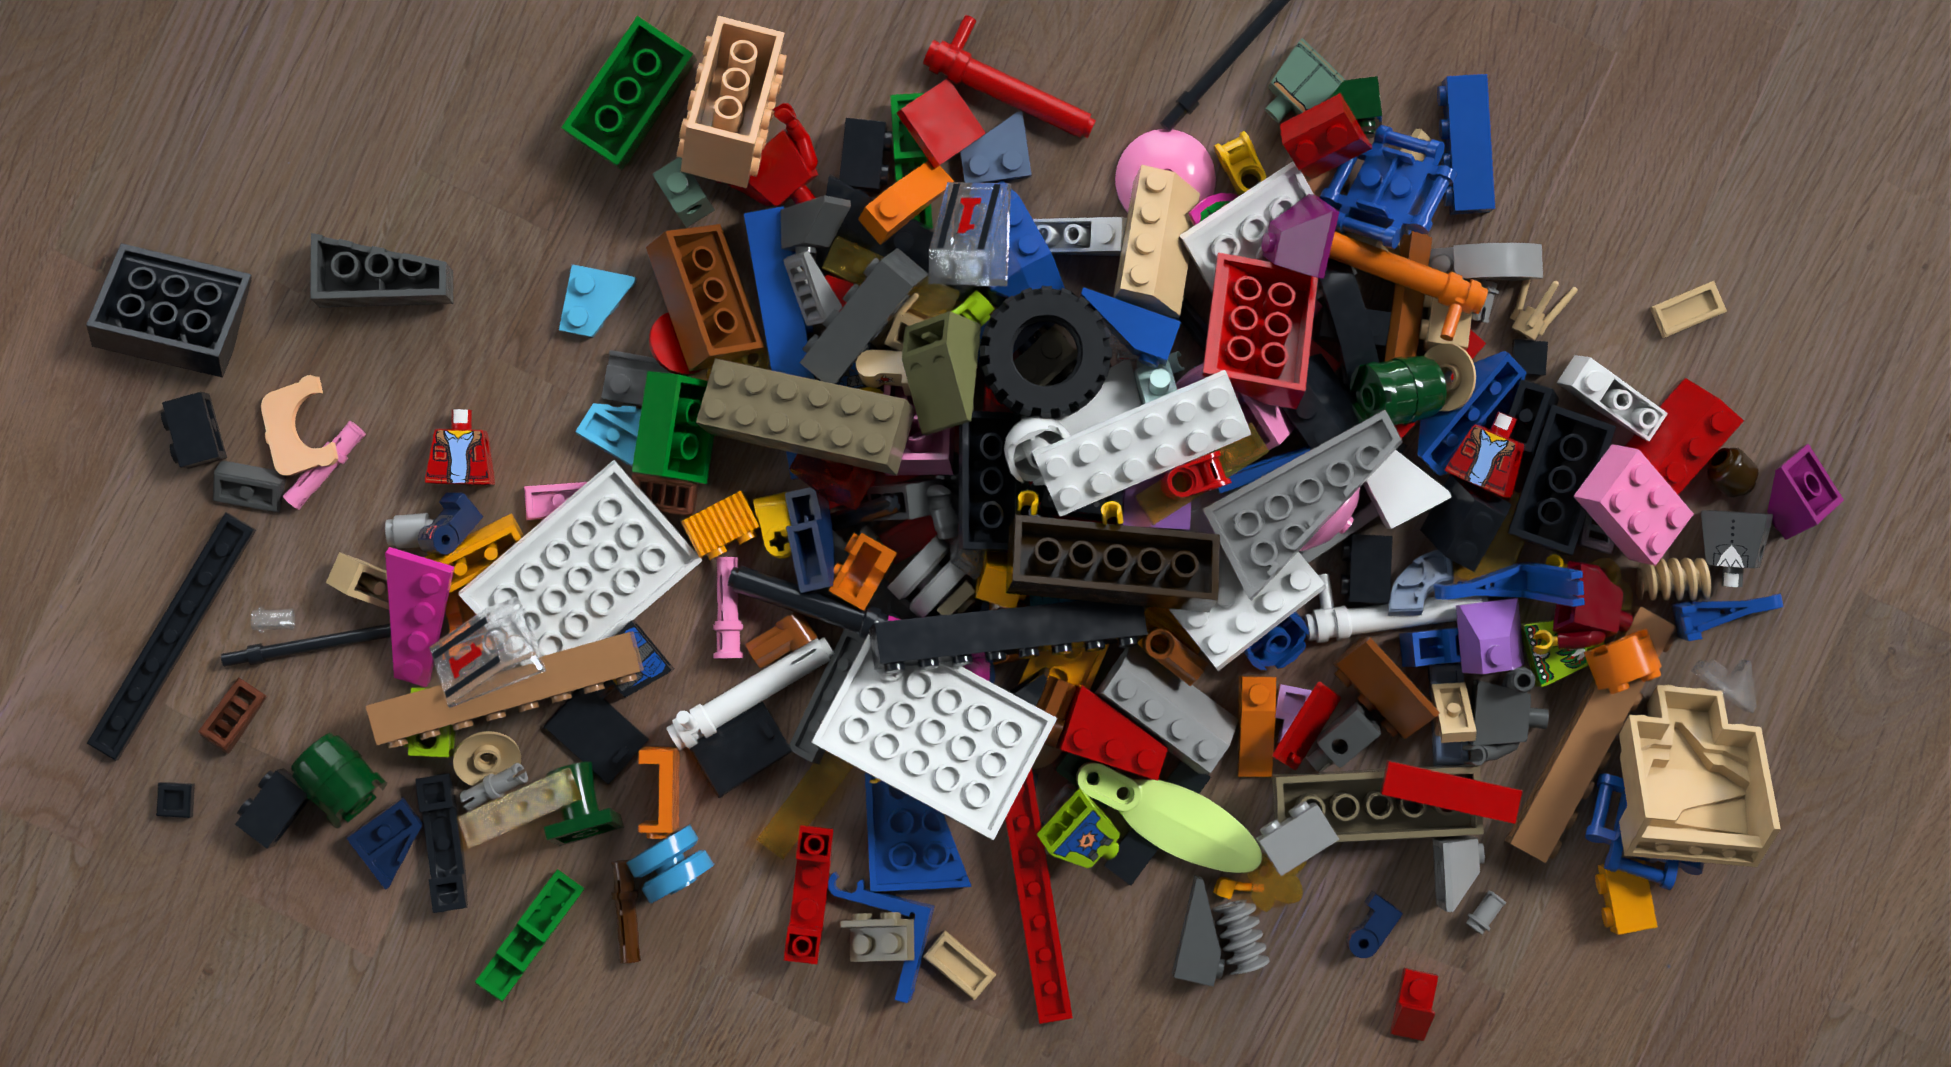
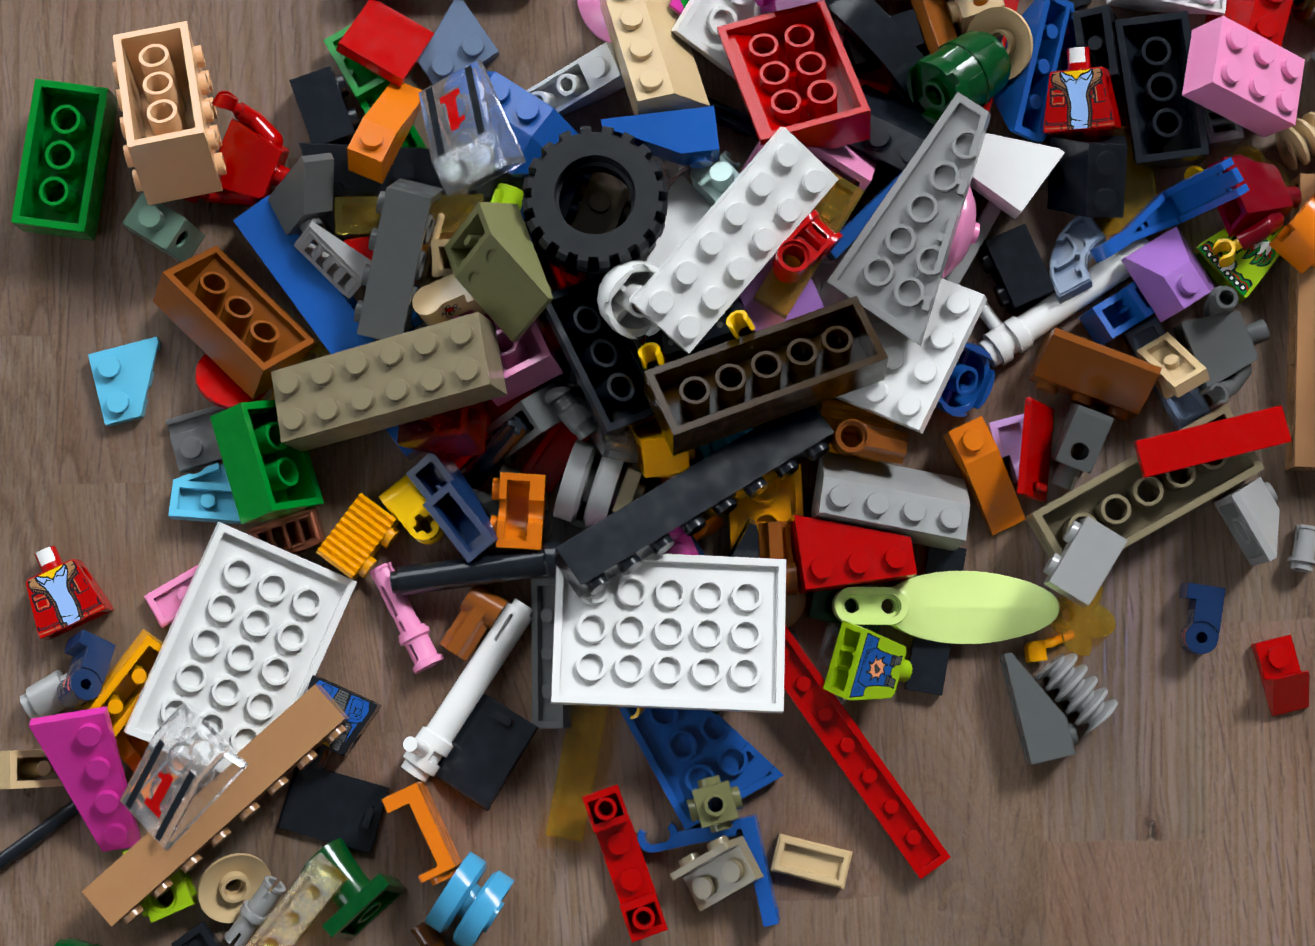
camera: 25 degrees left, 5 degrees down
(907, 870) = (710, 788): none -> olive brick

